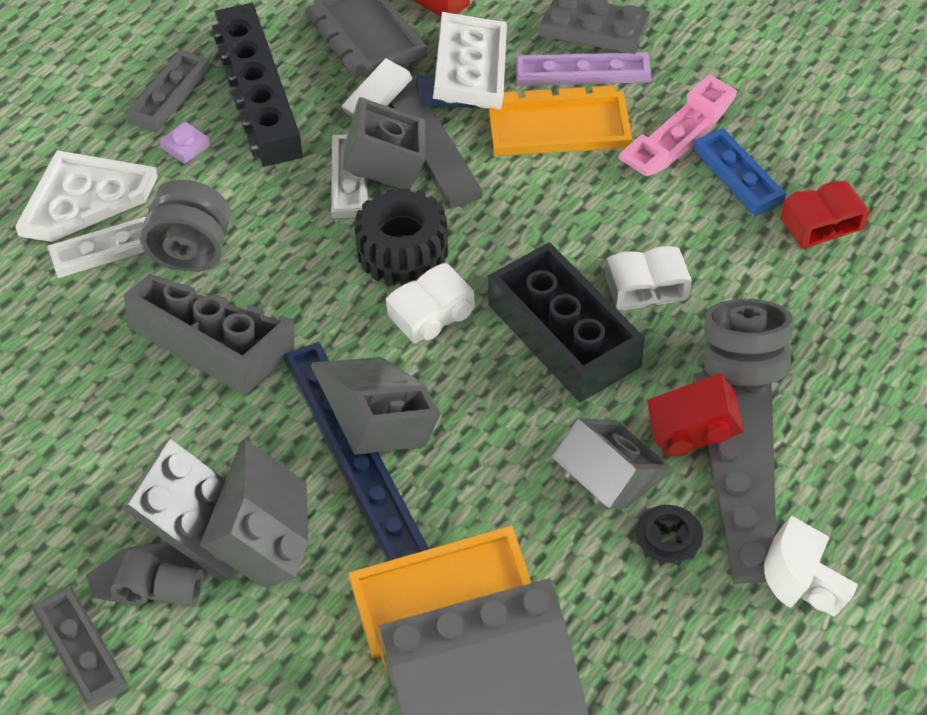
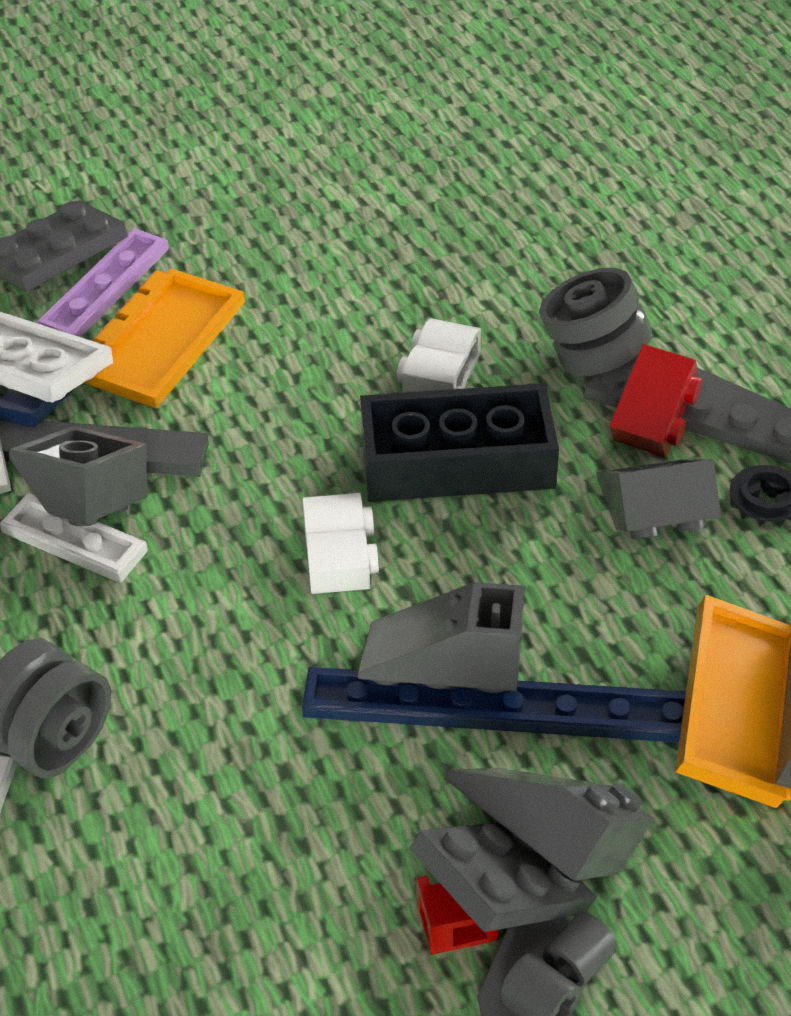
camera: 60 degrees left, 5 degrees down
(209, 333) = (220, 761): dark grey wedge -> none
(395, 215) = (228, 548): black tyre -> none
(677, 135) = (261, 250): bright pink slope -> none
(739, 172) = (355, 240): blue plate -> none
(824, 213) = (459, 211): red brick -> none

